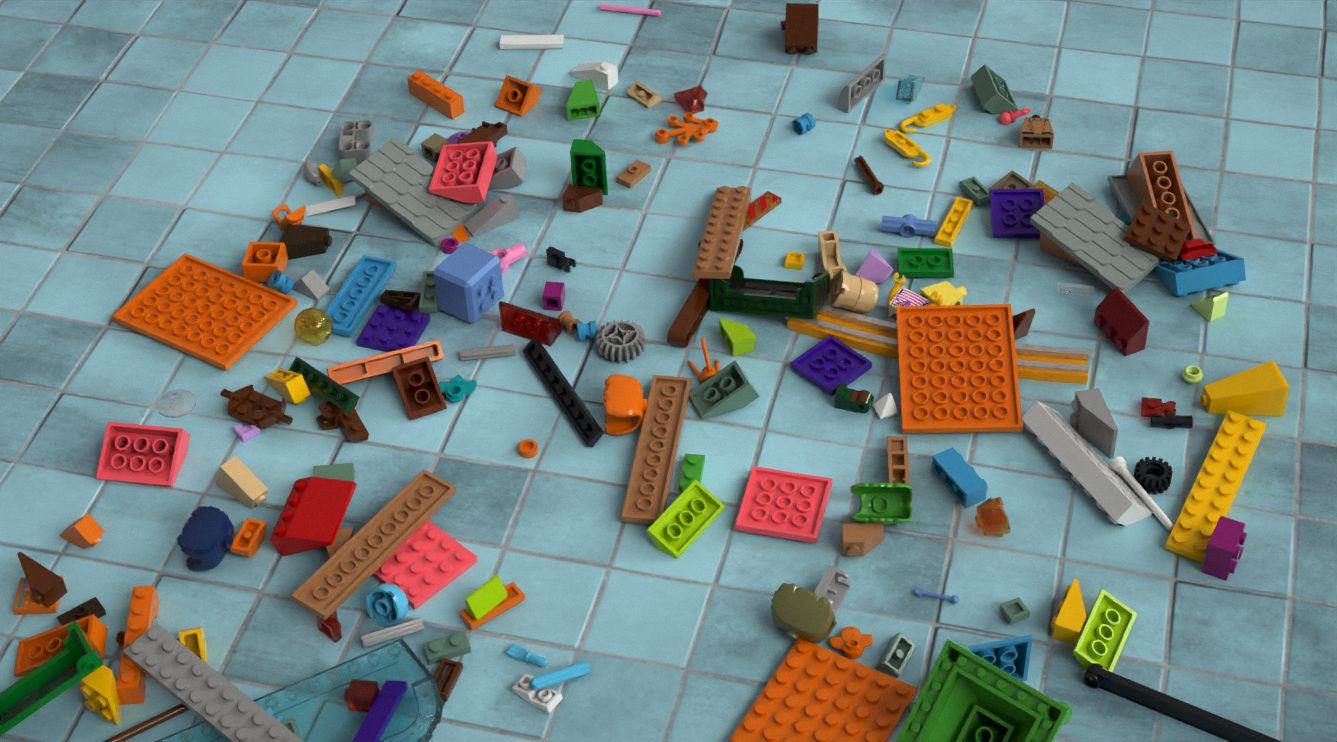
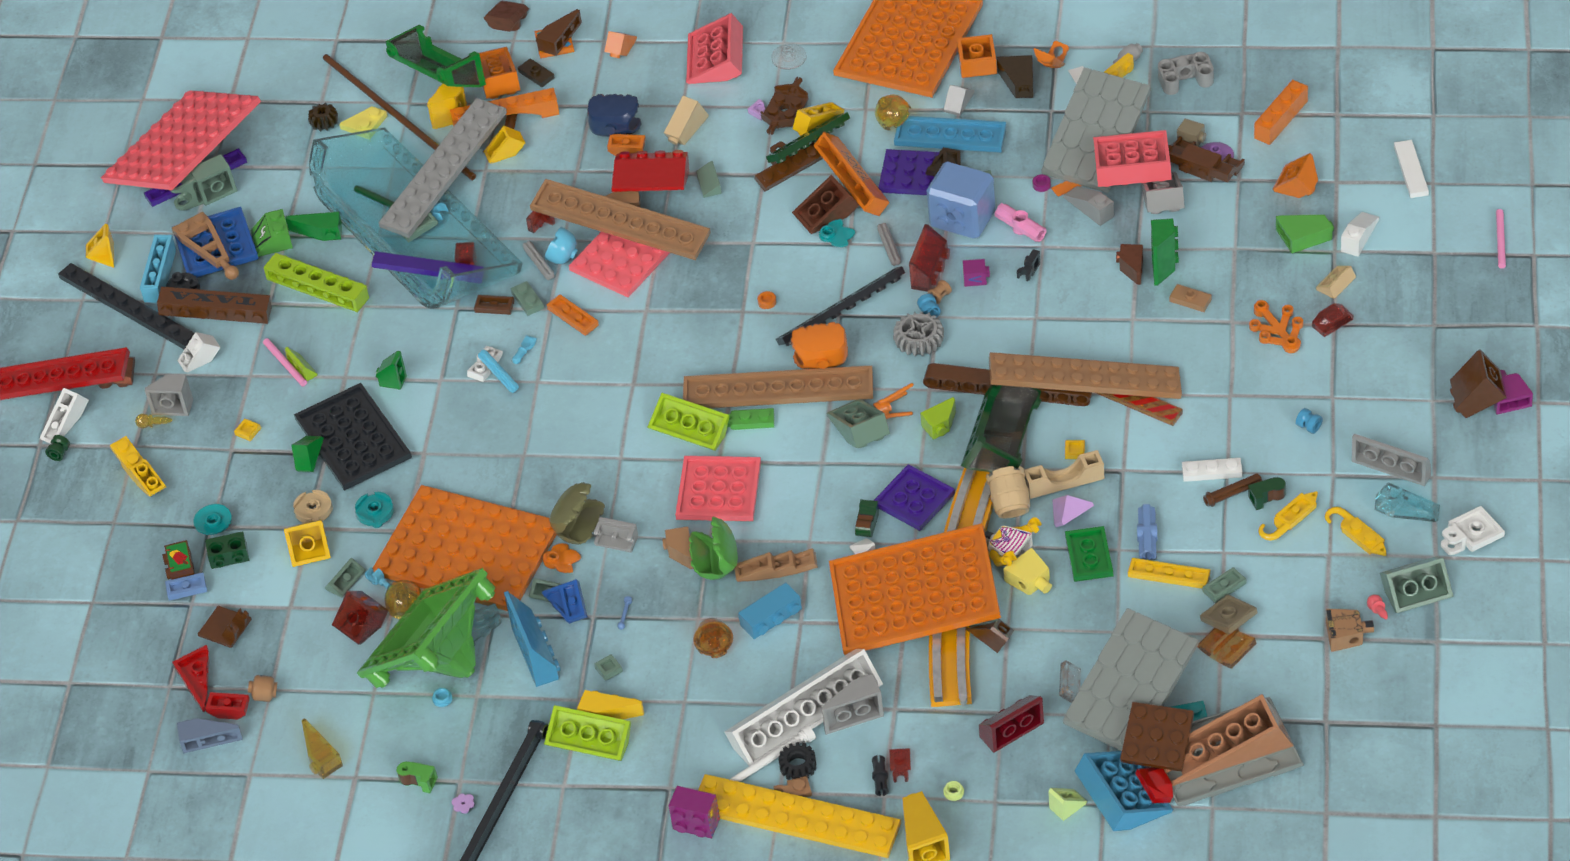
camera: 85 degrees right, 5 degrees up
(282, 283) = (951, 75): dark azure wheel -> none
(342, 169) = (1127, 71): sand green slope -> none
(485, 598) = (570, 304): lime slope -> none
(840, 185) = (1212, 469): none -> white plate
(876, 156) = (1266, 491): none -> dark green leg
(919, 635) = (567, 600): none -> blue wing
(943, 59) = (1464, 536): none -> white plate
(1012, 212) = (1187, 613): dark purple plate -> none
(1183, 482) = (797, 786): none -> medium nougat plate

